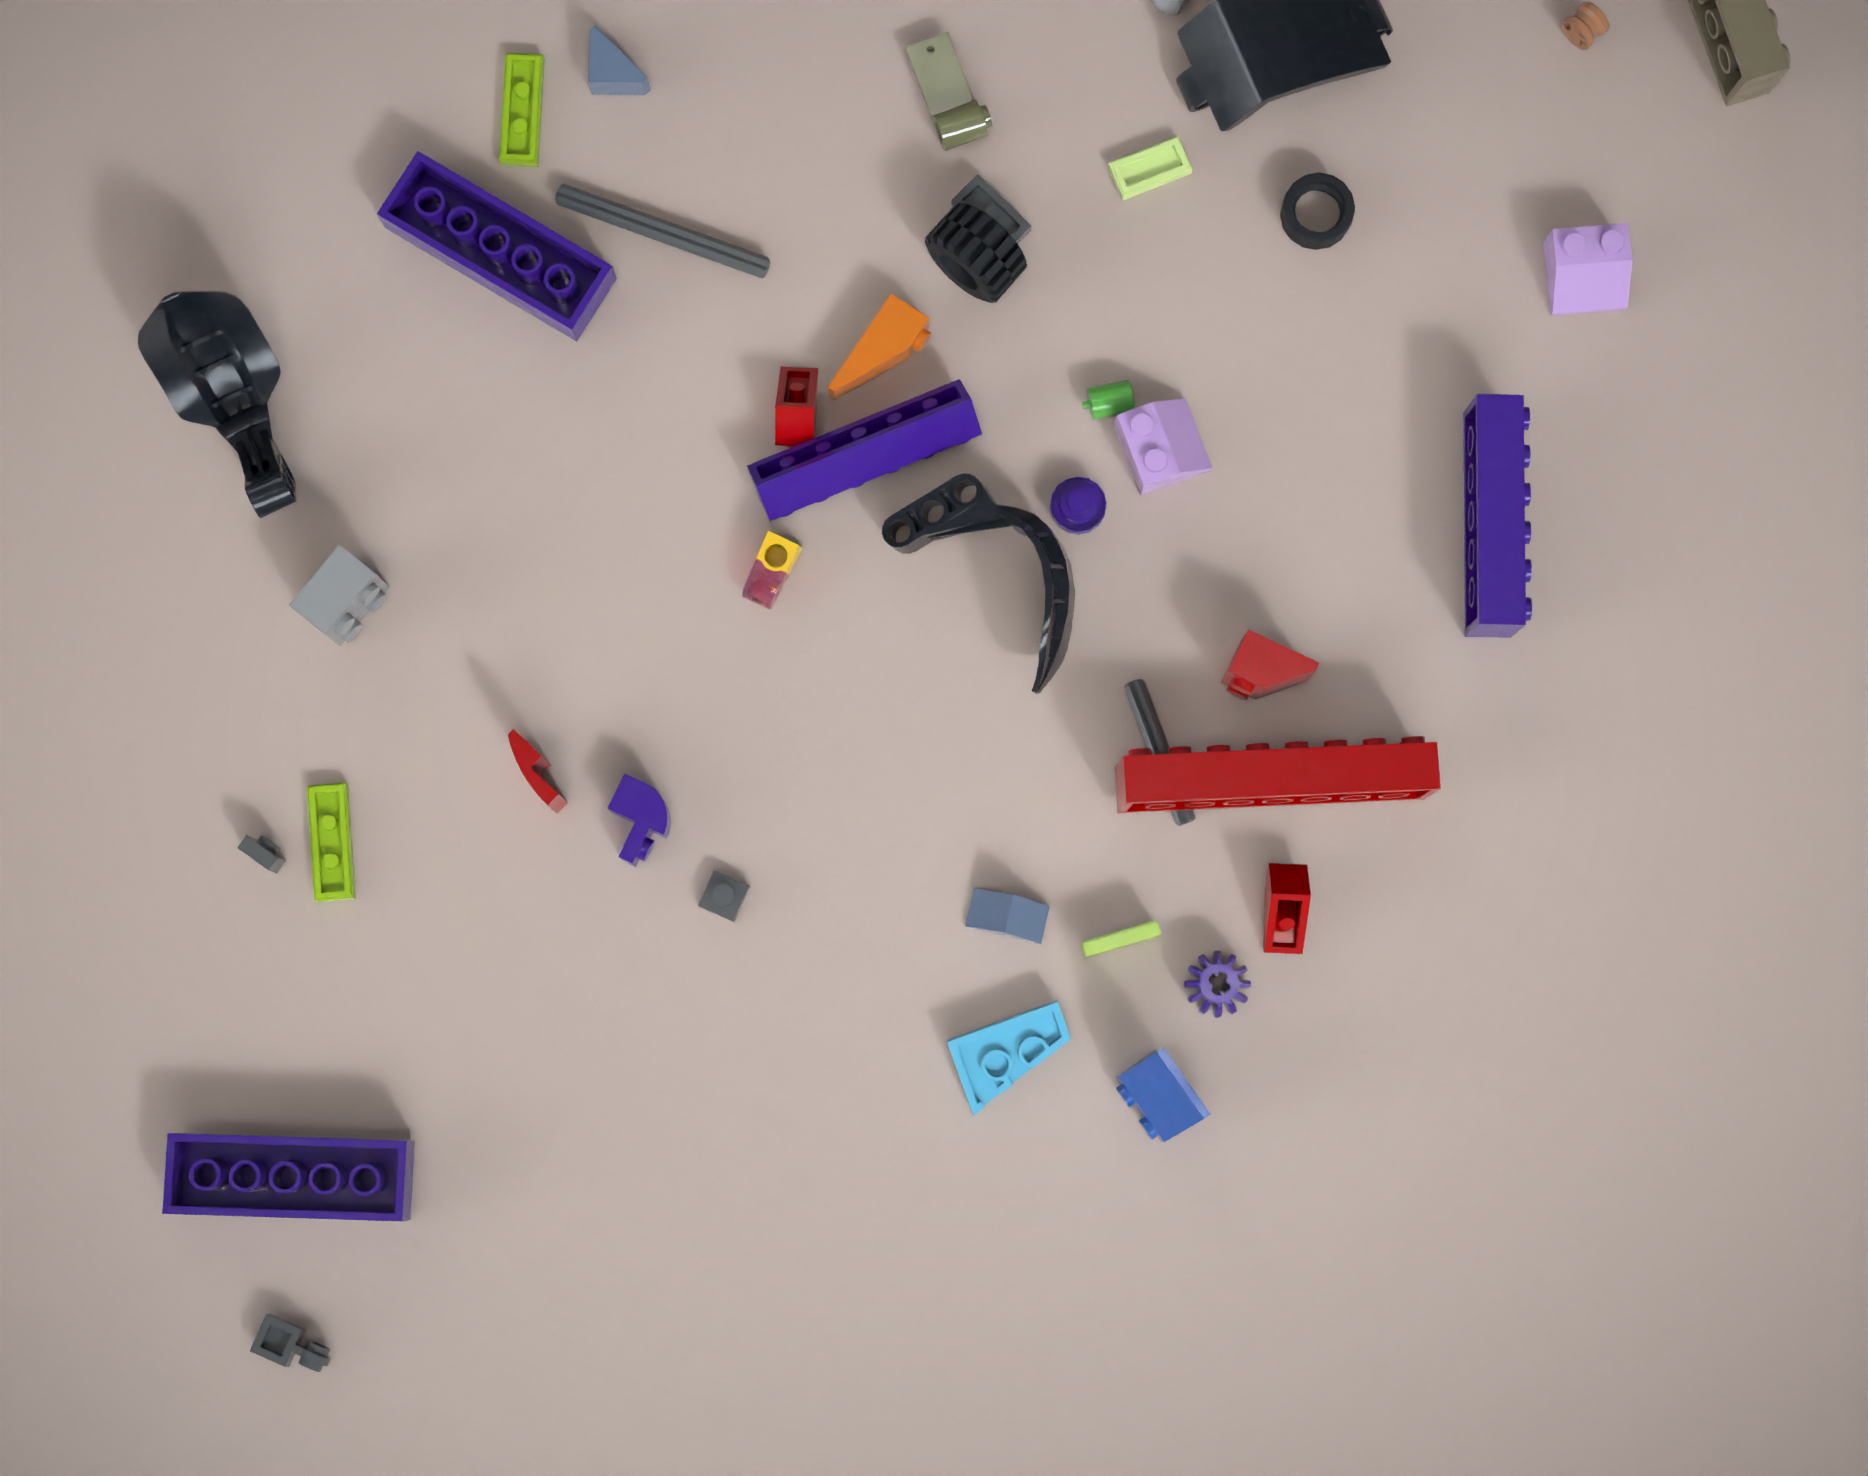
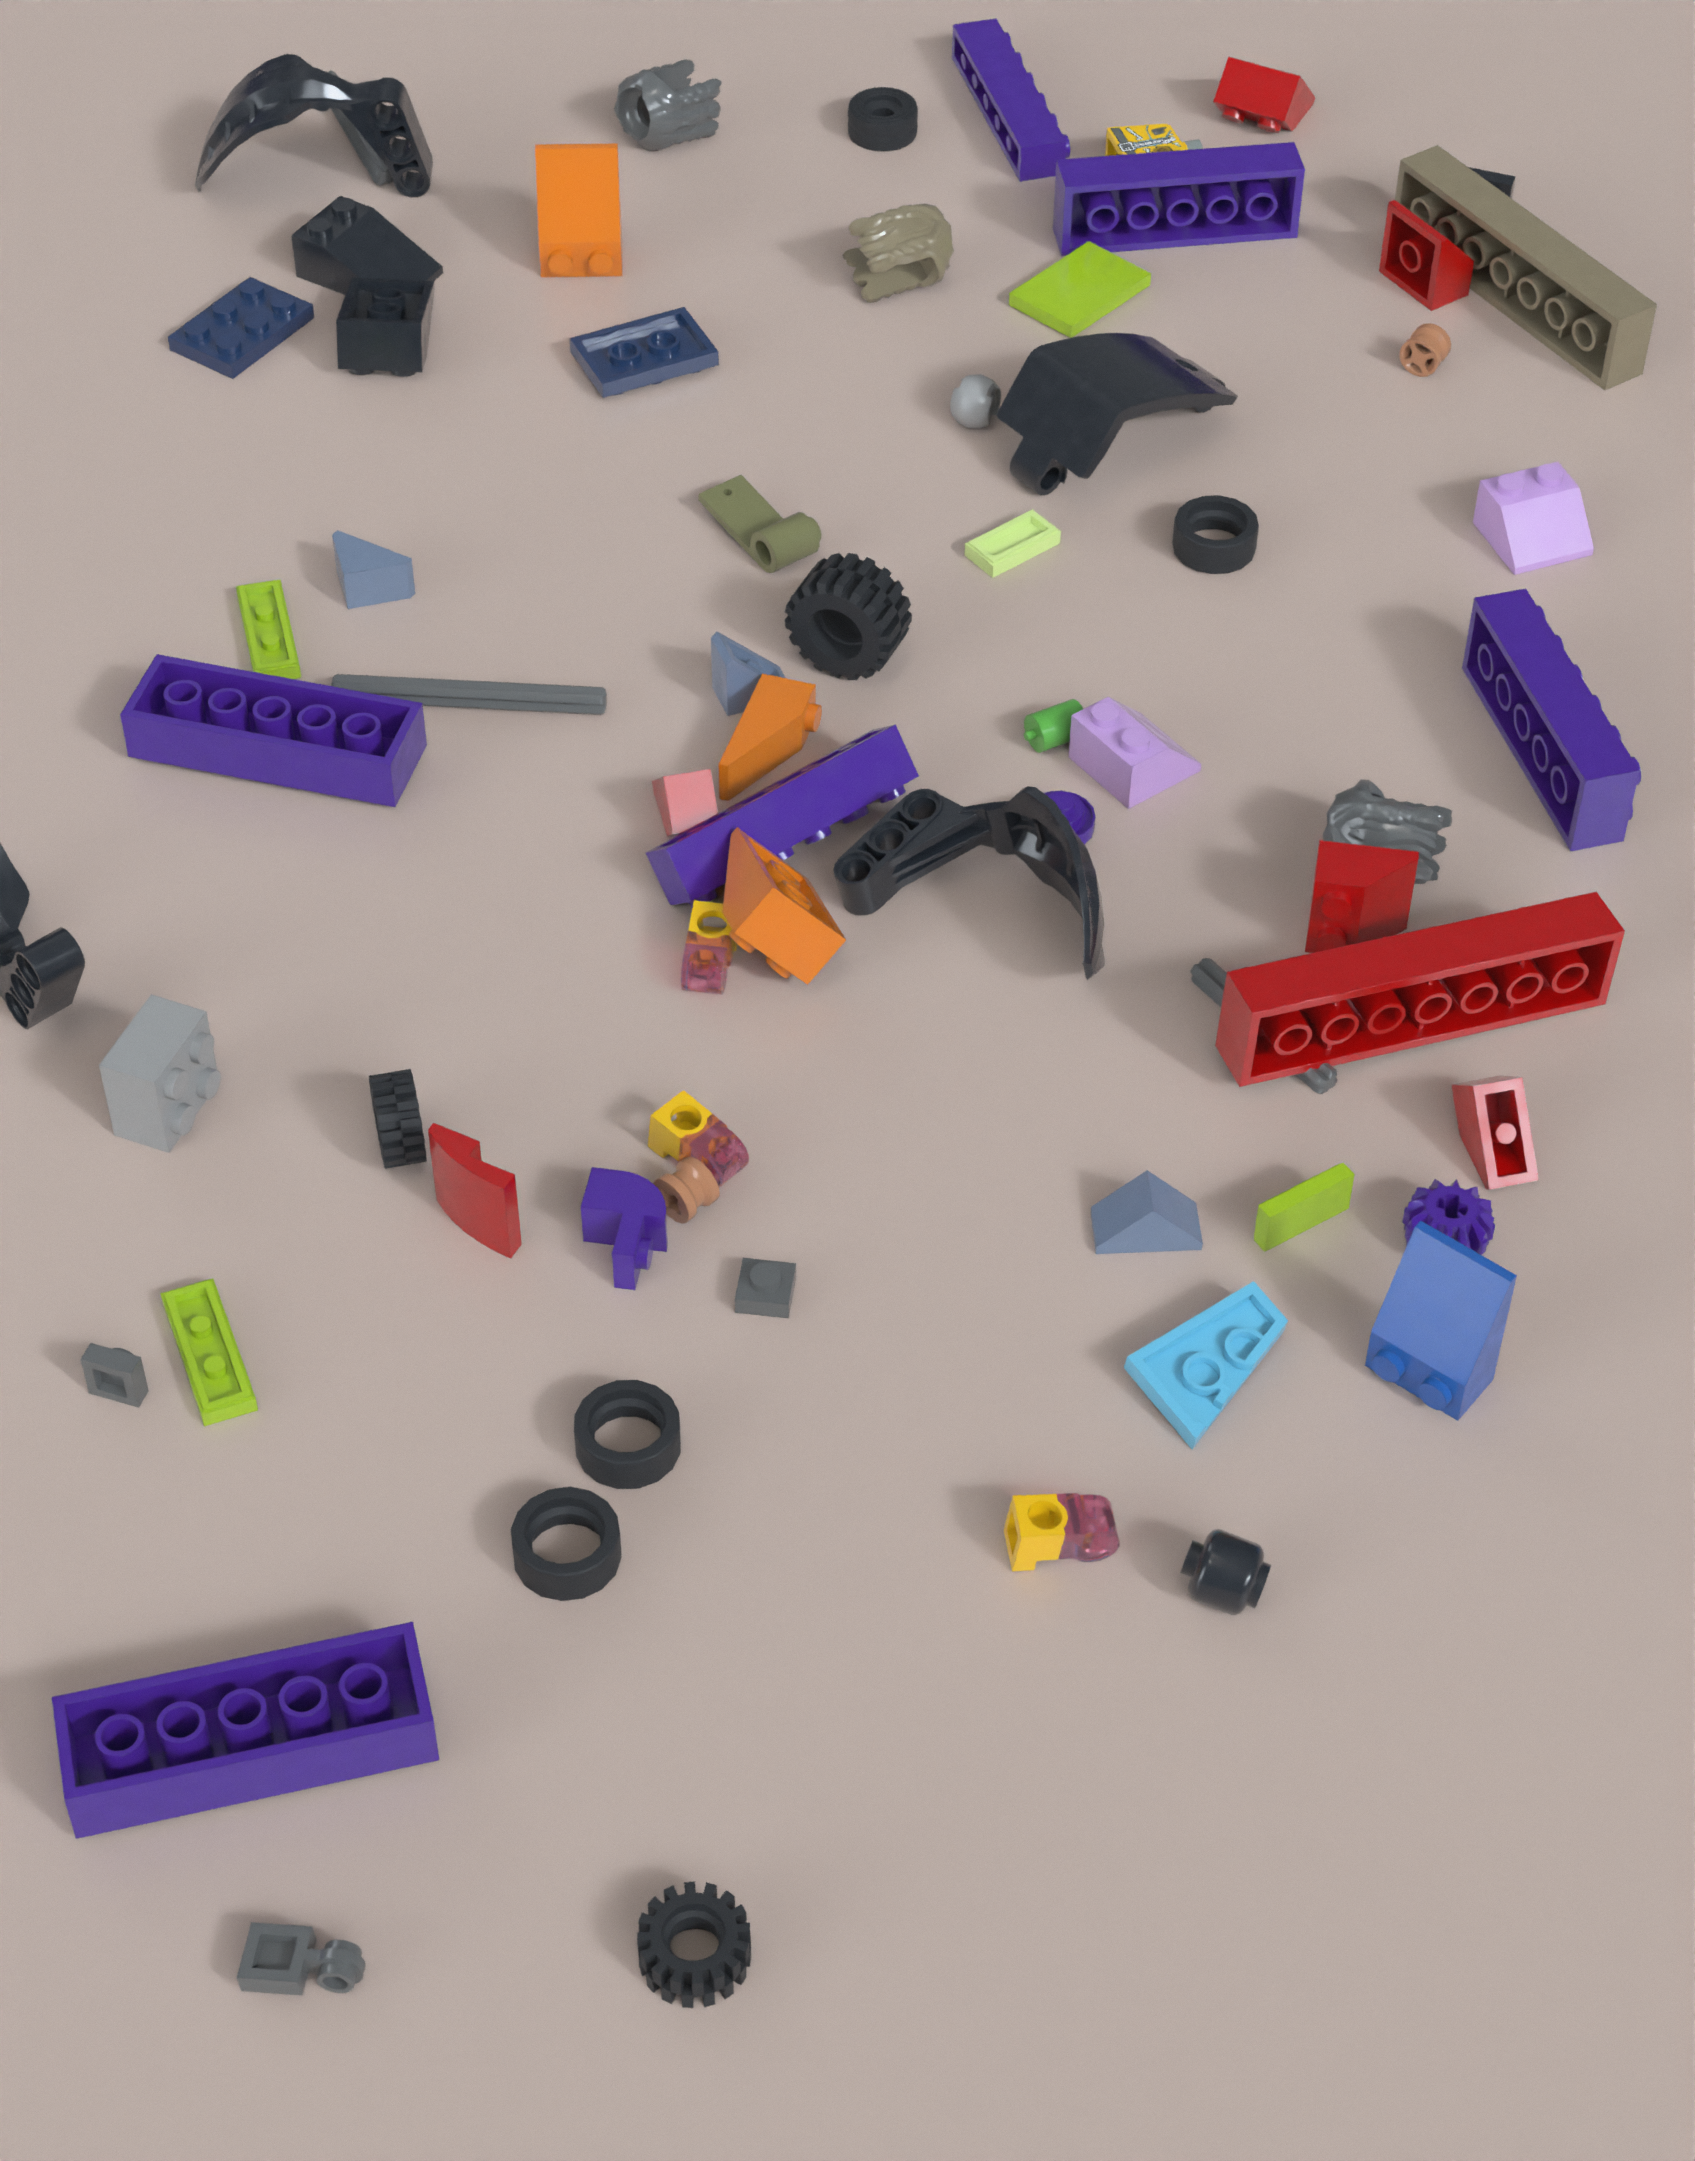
camera: 15 degrees left, 35 degrees down
(499, 684) = (397, 1118): none -> black tyre
(500, 1075) = (571, 1579): none -> black tyre
(507, 1410) = (698, 1976): none -> black tyre
(564, 994) = (619, 1400): none -> black tyre
(690, 799) = (687, 1189): none -> nougat wheel
(711, 758) = (697, 1135): none -> leg
(829, 552) = (777, 911): none -> orange slope
(856, 1166) = (1059, 1528): none -> leg
(885, 276) = (737, 672): none -> sand blue slope
(952, 1233) = (1226, 1572): none -> black head
(1316, 609) = (1369, 819): none -> dark grey piece

